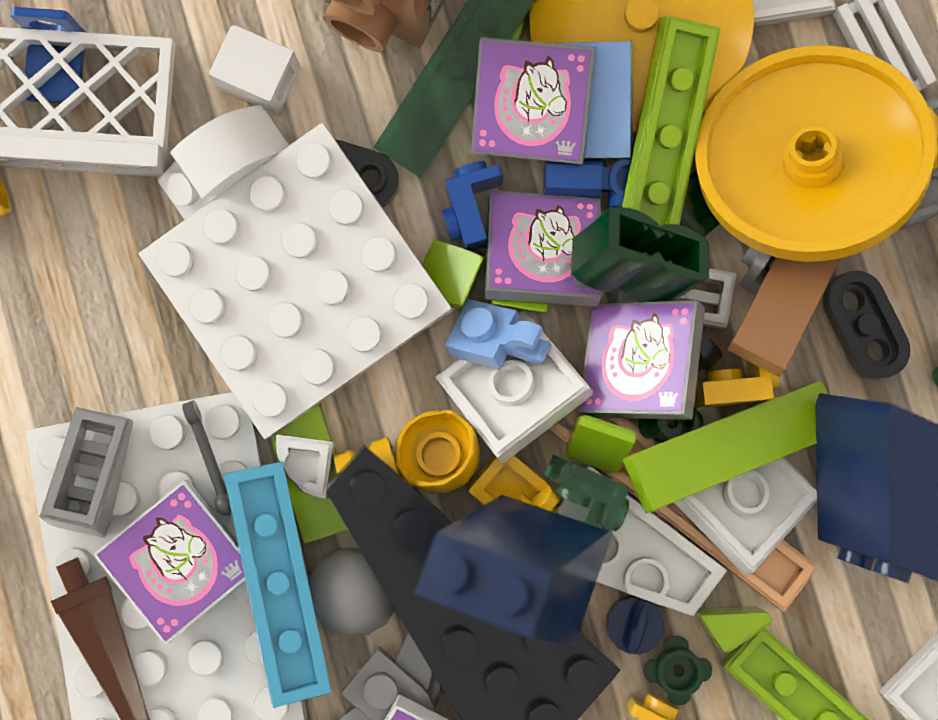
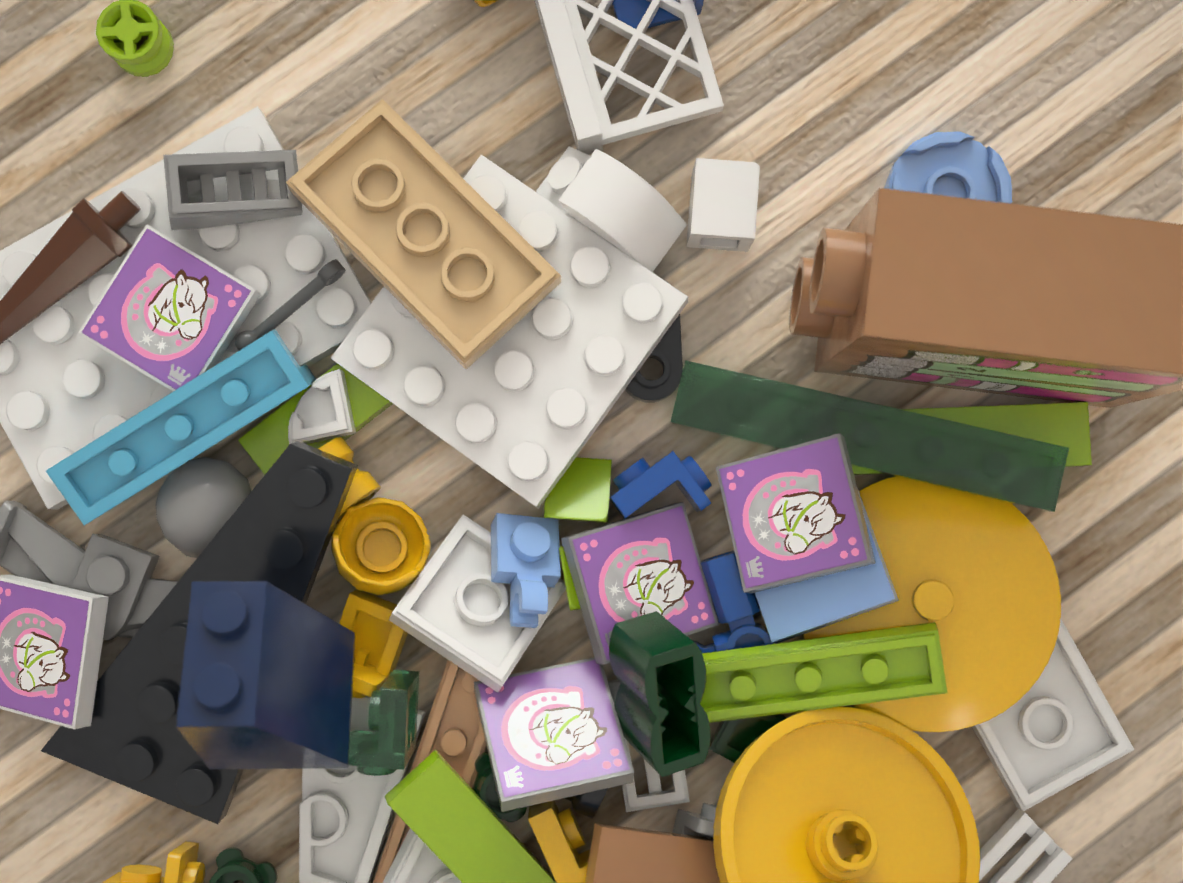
camera: 70 degrees right, 0 degrees up
(187, 320) = (424, 233): none -> tan tile
(599, 443) = (449, 717): lime slope -> none
(634, 625) = (270, 822): dark blue tile -> none

